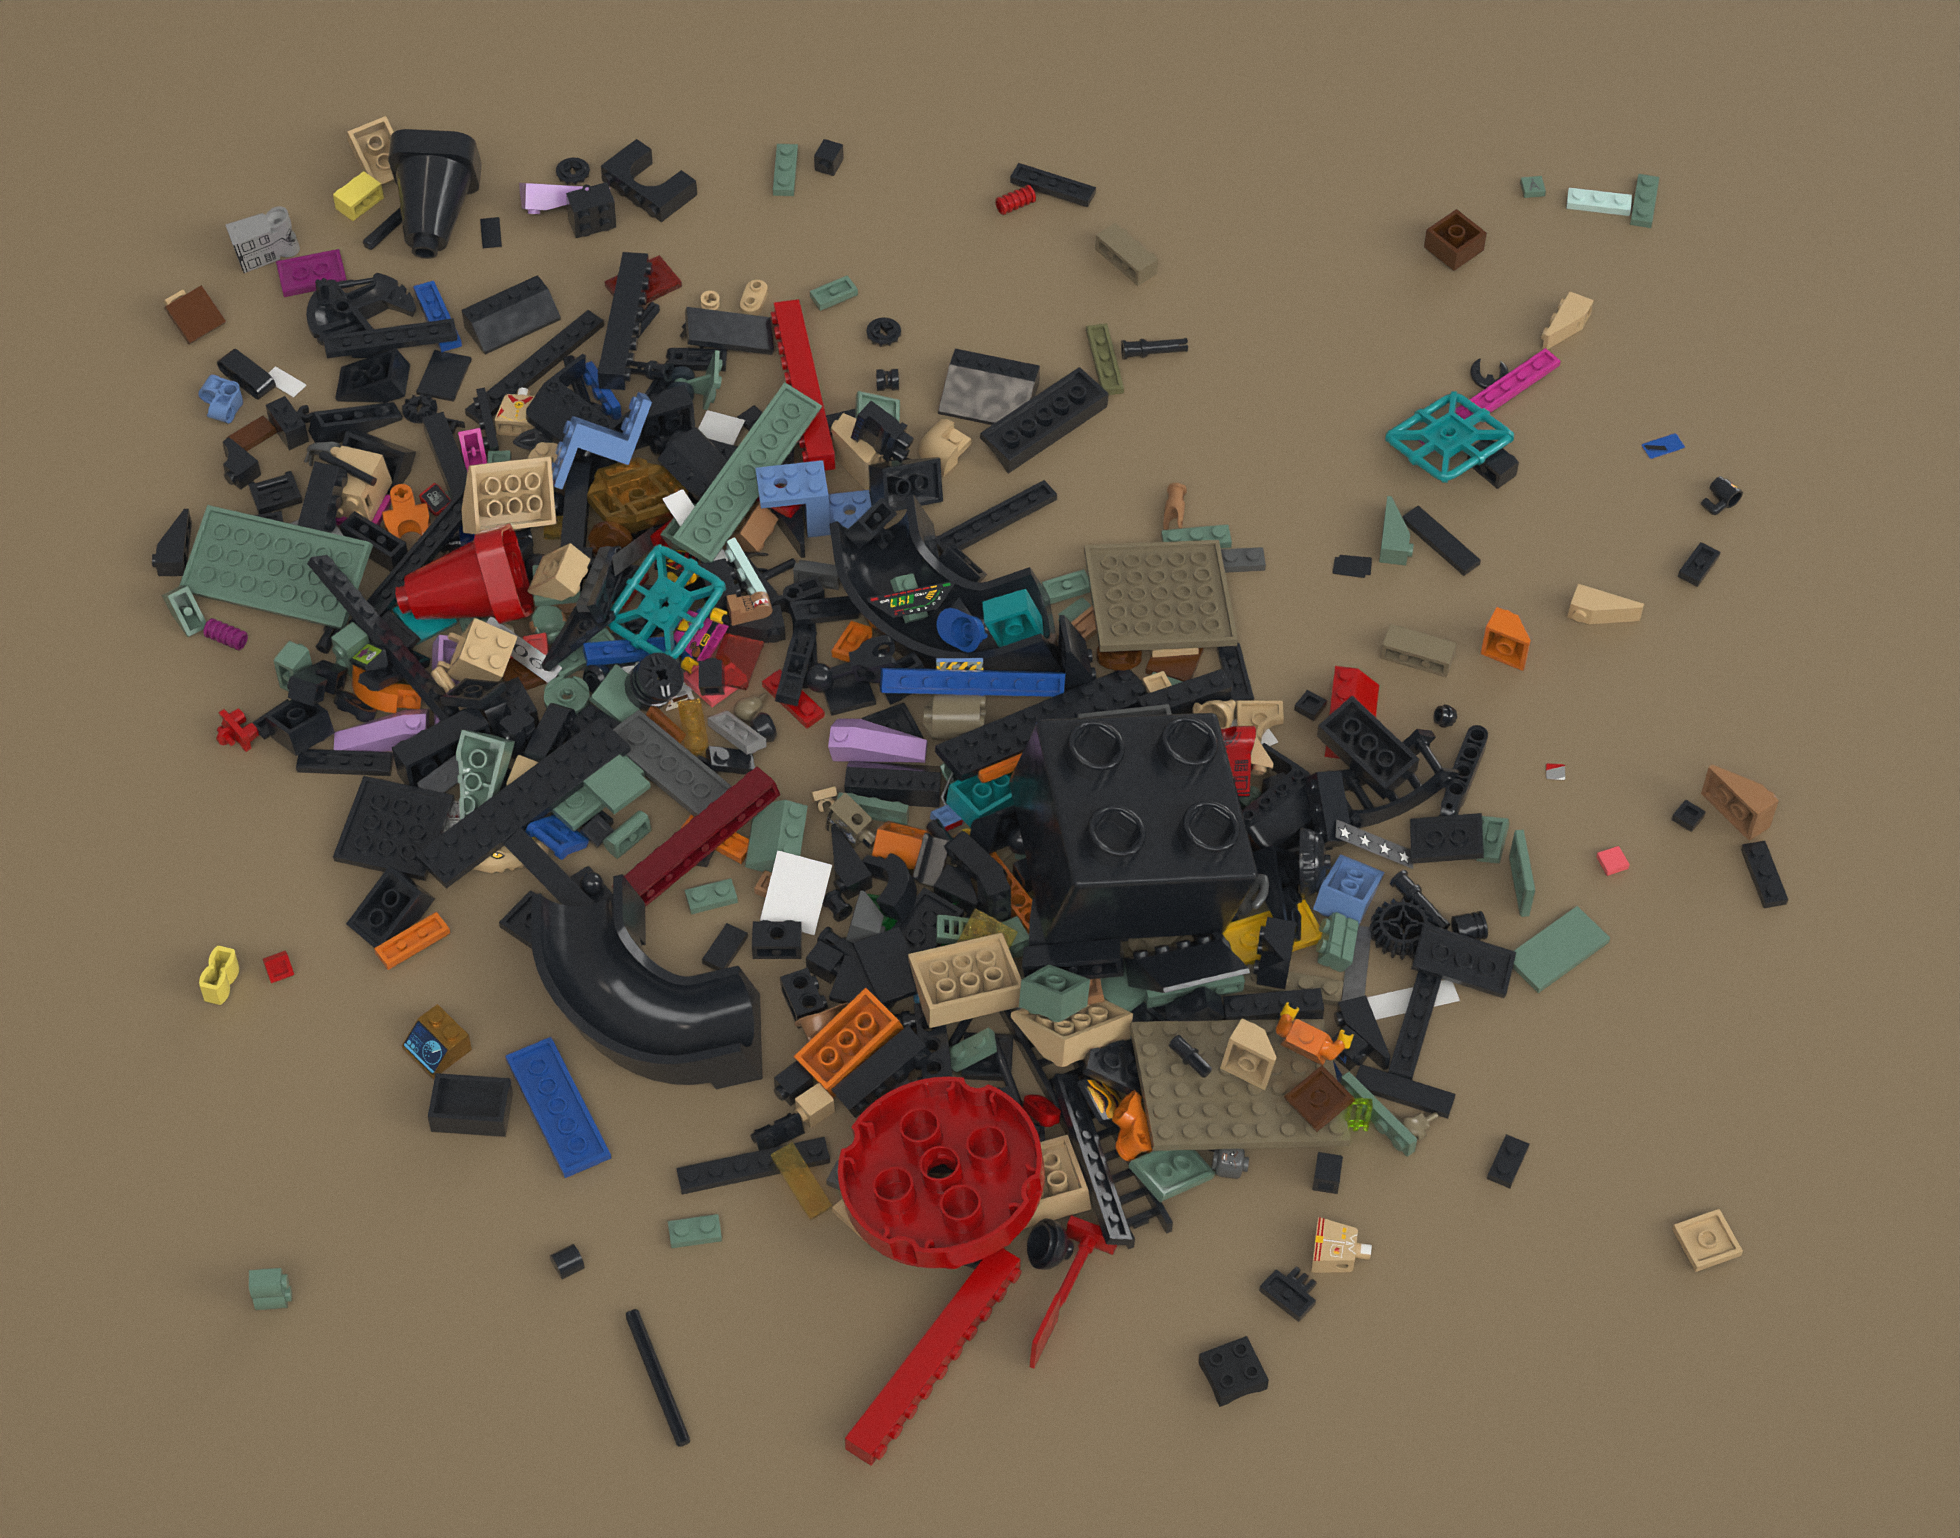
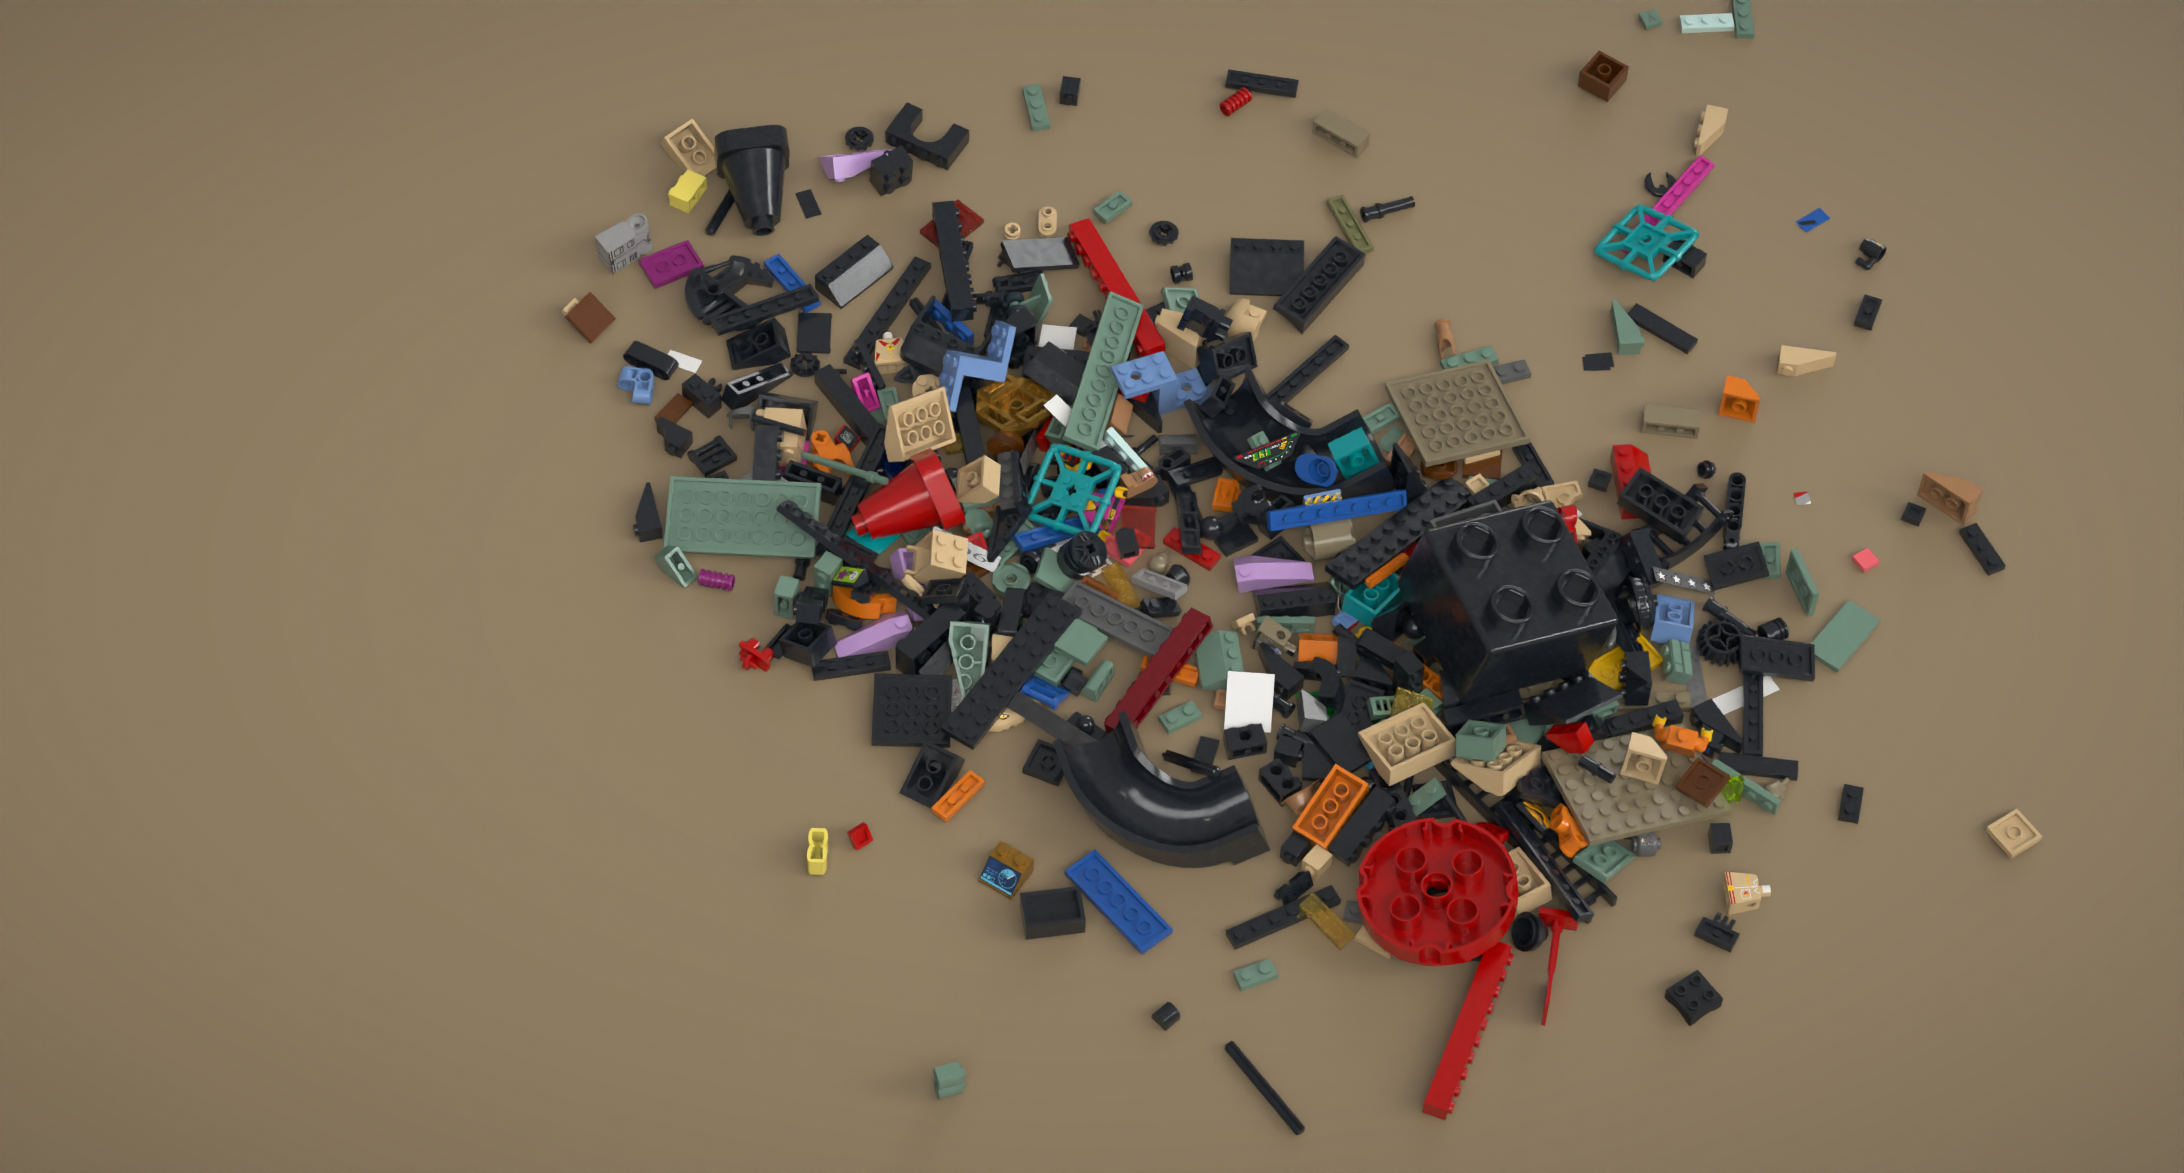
camera: 15 degrees left, 0 degrees up
(429, 544) = (870, 476): none -> sand green bar
(695, 954) = (1191, 763): none -> black axle
(1170, 1010) = (1571, 737): none -> red slope

